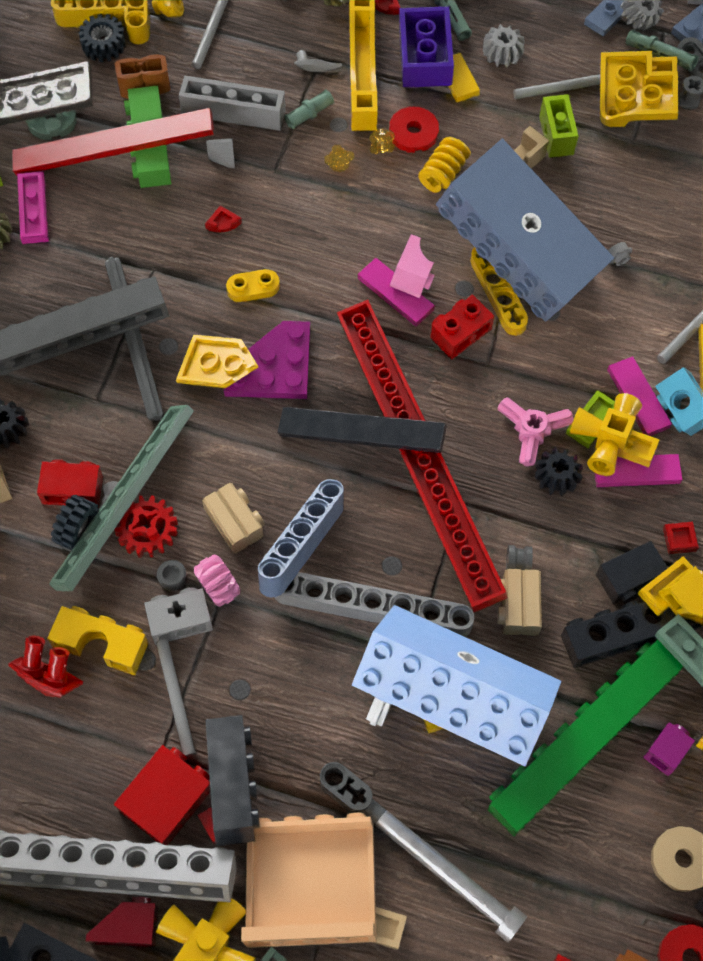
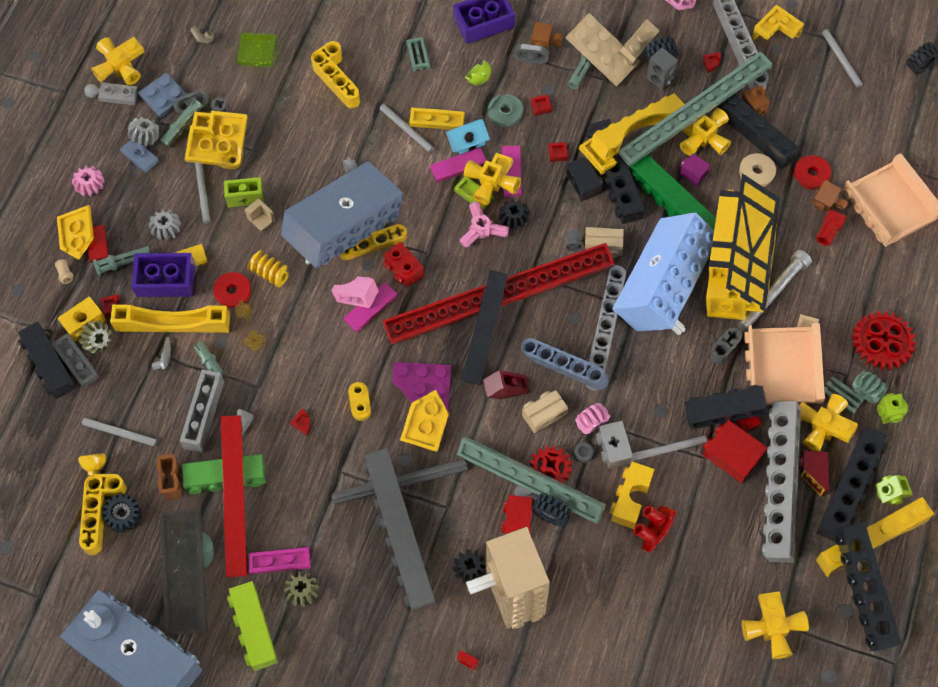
camera: 85 degrees left, 0 degrees up
(274, 466) = (505, 385): none -> dark red slope
(511, 809) = (742, 251): none -> yellow panel

